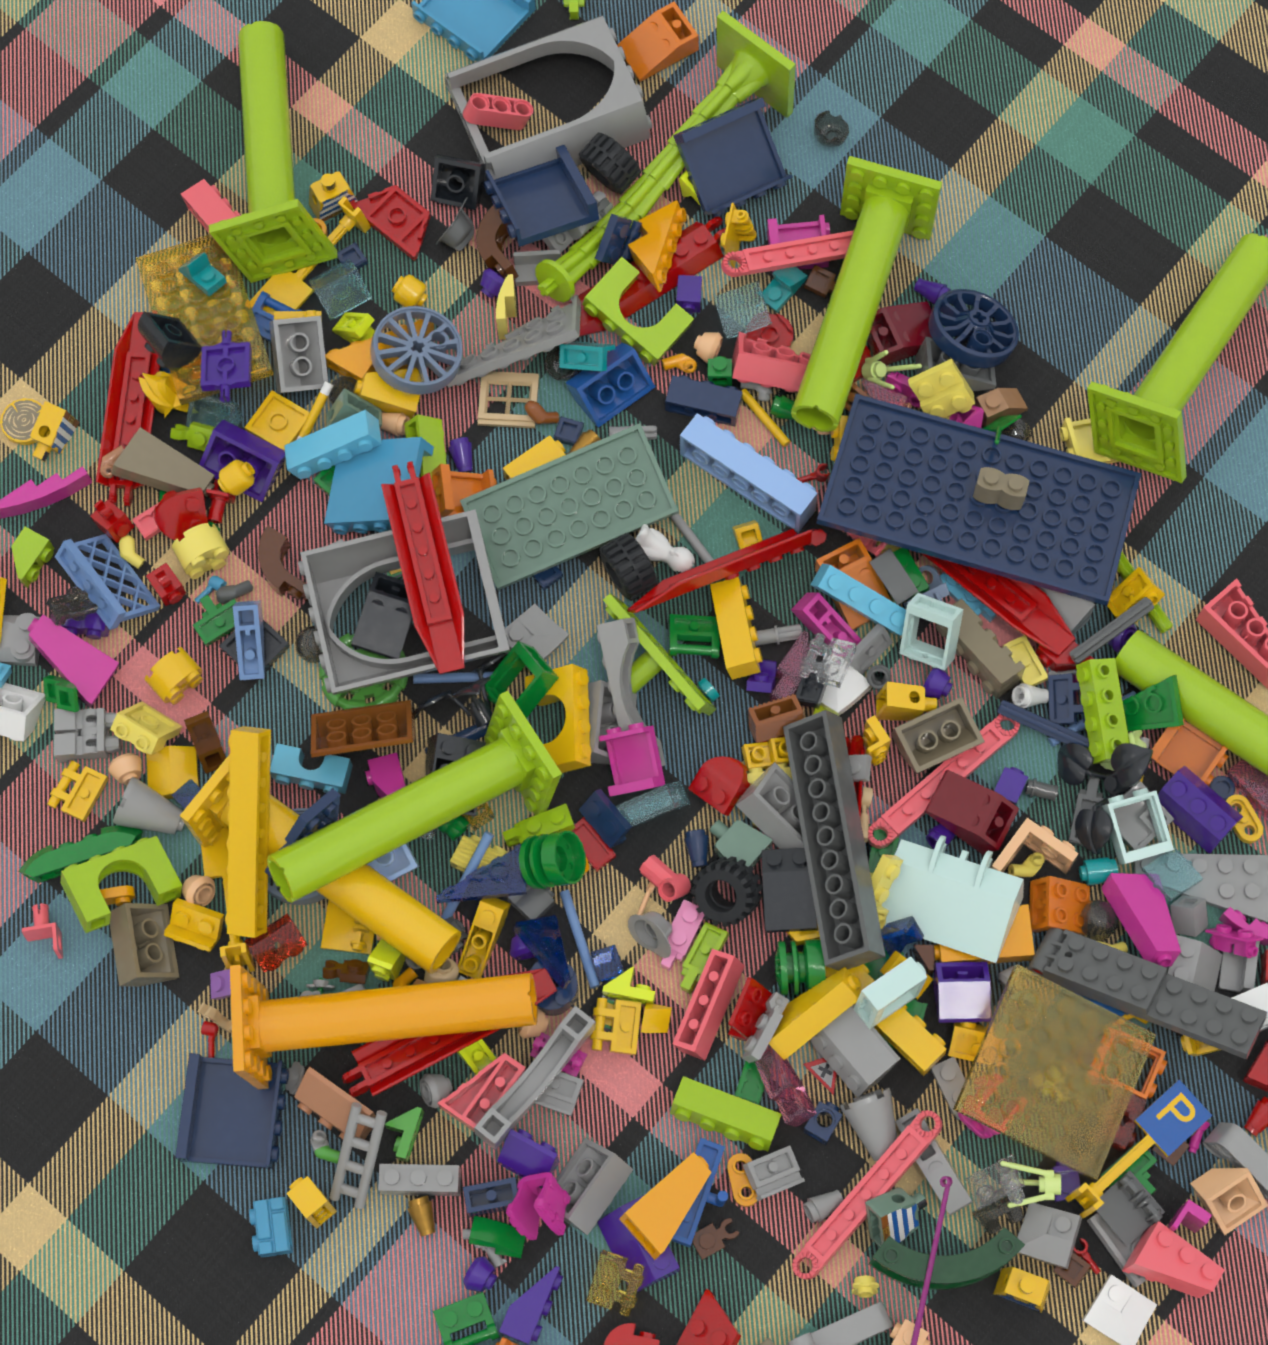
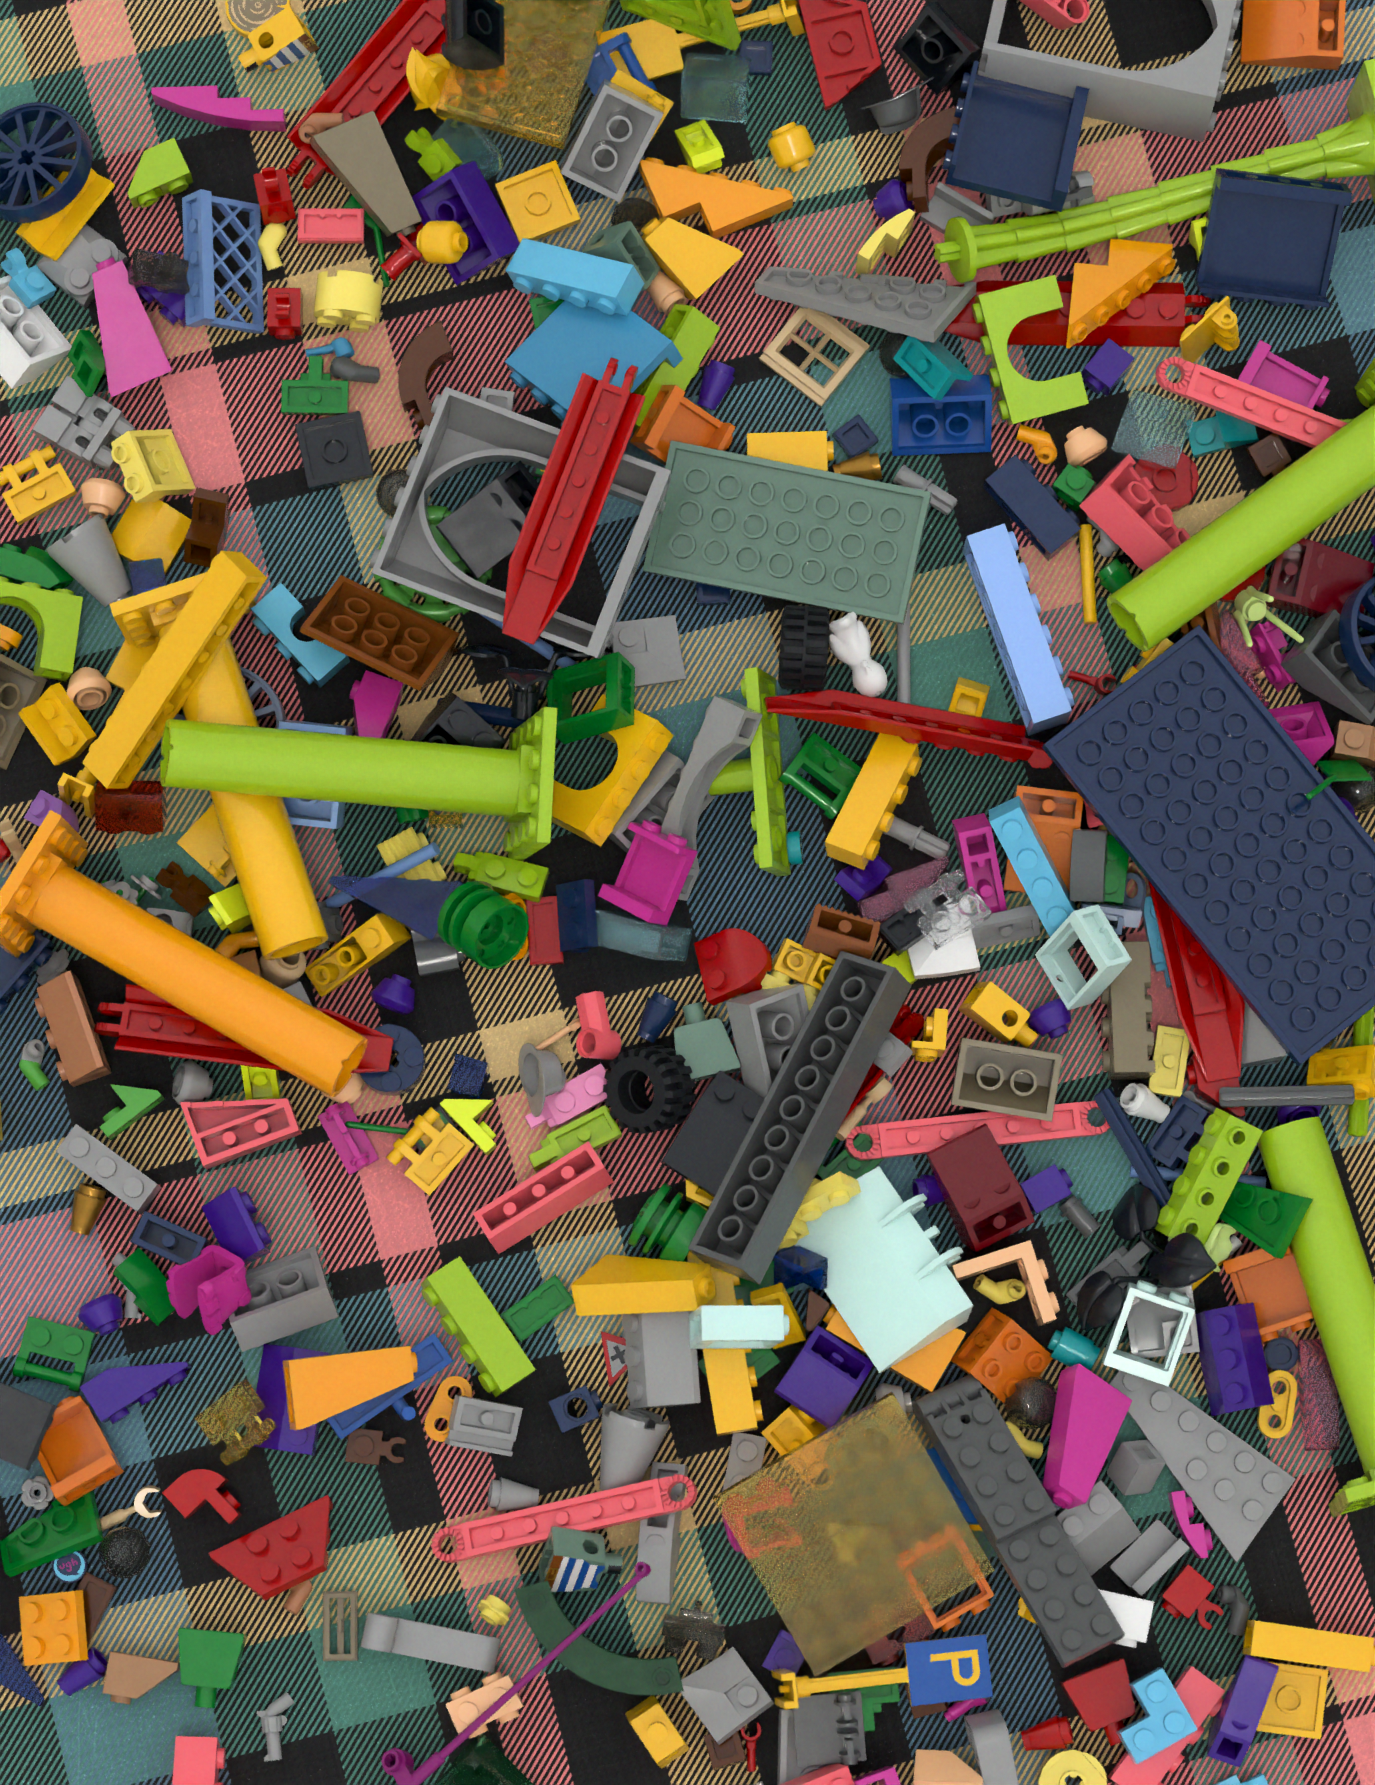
camera: 30 degrees right, 10 degrees up
(174, 675) = (222, 426): yellow brick -> none
(180, 512) = (354, 241): red slope -> none
(226, 366) = (513, 105): dark purple plate -> none
(249, 639) = (331, 441): medium blue slope -> none
(316, 409) = (584, 220): yellow bar -> none
(316, 817) = (256, 707): dark blue wing -> none
(370, 1147) = (78, 1101): light grey bar -> none
(416, 350) = (756, 240): sand blue piece -> none
(534, 1081) = (300, 1150): light grey arch -> none
(539, 415) = (834, 397): dark orange arm -> none
(545, 942) = (414, 1006): clear blue wing -> none
(562, 1094) = (315, 1171): light grey plate -> none
(579, 939) = (459, 1027): medium blue bar -> none
(609, 163) = (1125, 147): black tyre -> none
(614, 238) = (1058, 249): dark blue plate -> none
(656, 1018) = (477, 1172): yellow slope -> none
(748, 1010) = (582, 1239): red bracket -> none
(766, 1027) = (583, 1267): light grey hinge -> none
(785, 1088) = (558, 1343): clear pink slope -> none
(878, 681) = (992, 965): dark grey cone -> none
(942, 390) = (1303, 688): light yellow plate -> none
(995, 1183) = (709, 1603): clear hinge -> none
(1000, 488) = (1280, 859): dark tan brick -> none
(1048, 1183) = (764, 1640): yellowish green plant -> none
(1172, 874) = (1148, 1411): clear light blue piece -> none
(1243, 940) = (1157, 1519): dark pink hinge -> none

